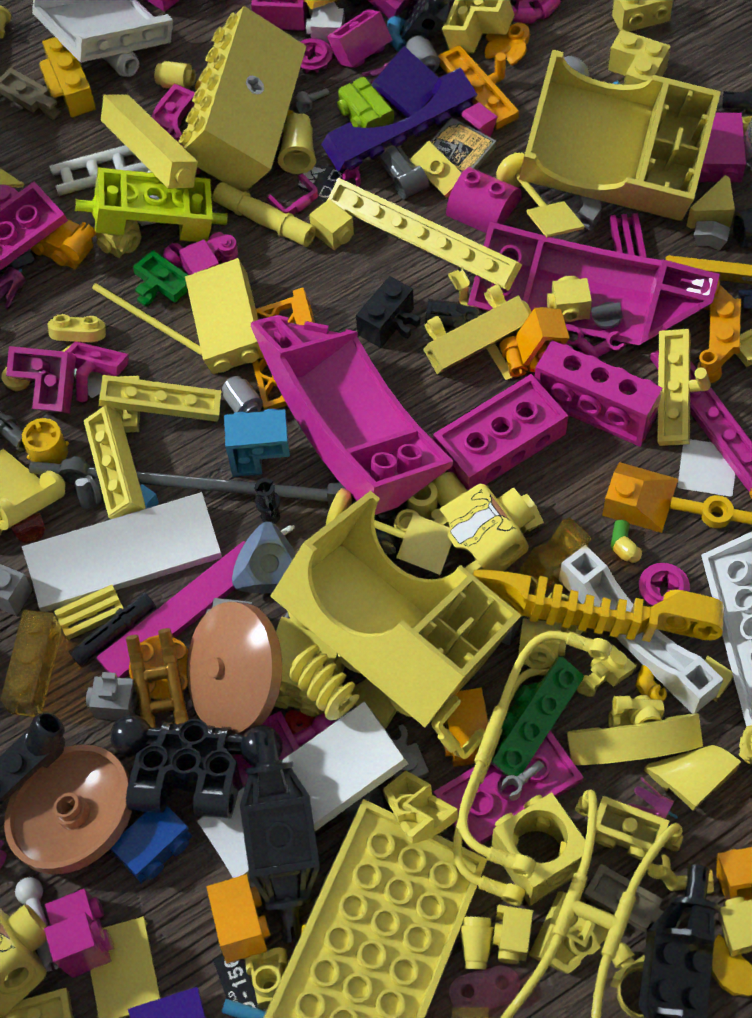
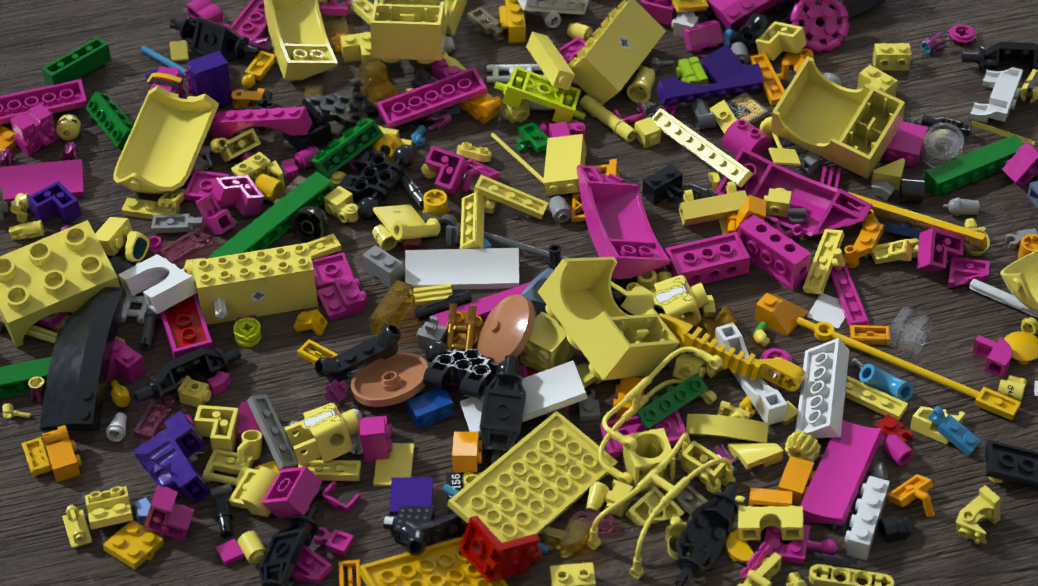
camera: 15 degrees right, 15 degrees down
(254, 438) = (558, 226): dark azure brick -> none
(321, 684) = (553, 343): light yellow piece -> none
(322, 51) = (666, 40): dark pink gear -> none
(416, 808) = (585, 424): light yellow slope -> none
(447, 737) = (613, 389): light yellow piece -> none
(480, 118) = (762, 96): dark pink slope -> none
(520, 780) = (645, 426): light grey hand -> none
(612, 670) = (726, 389): light yellow plate -> none

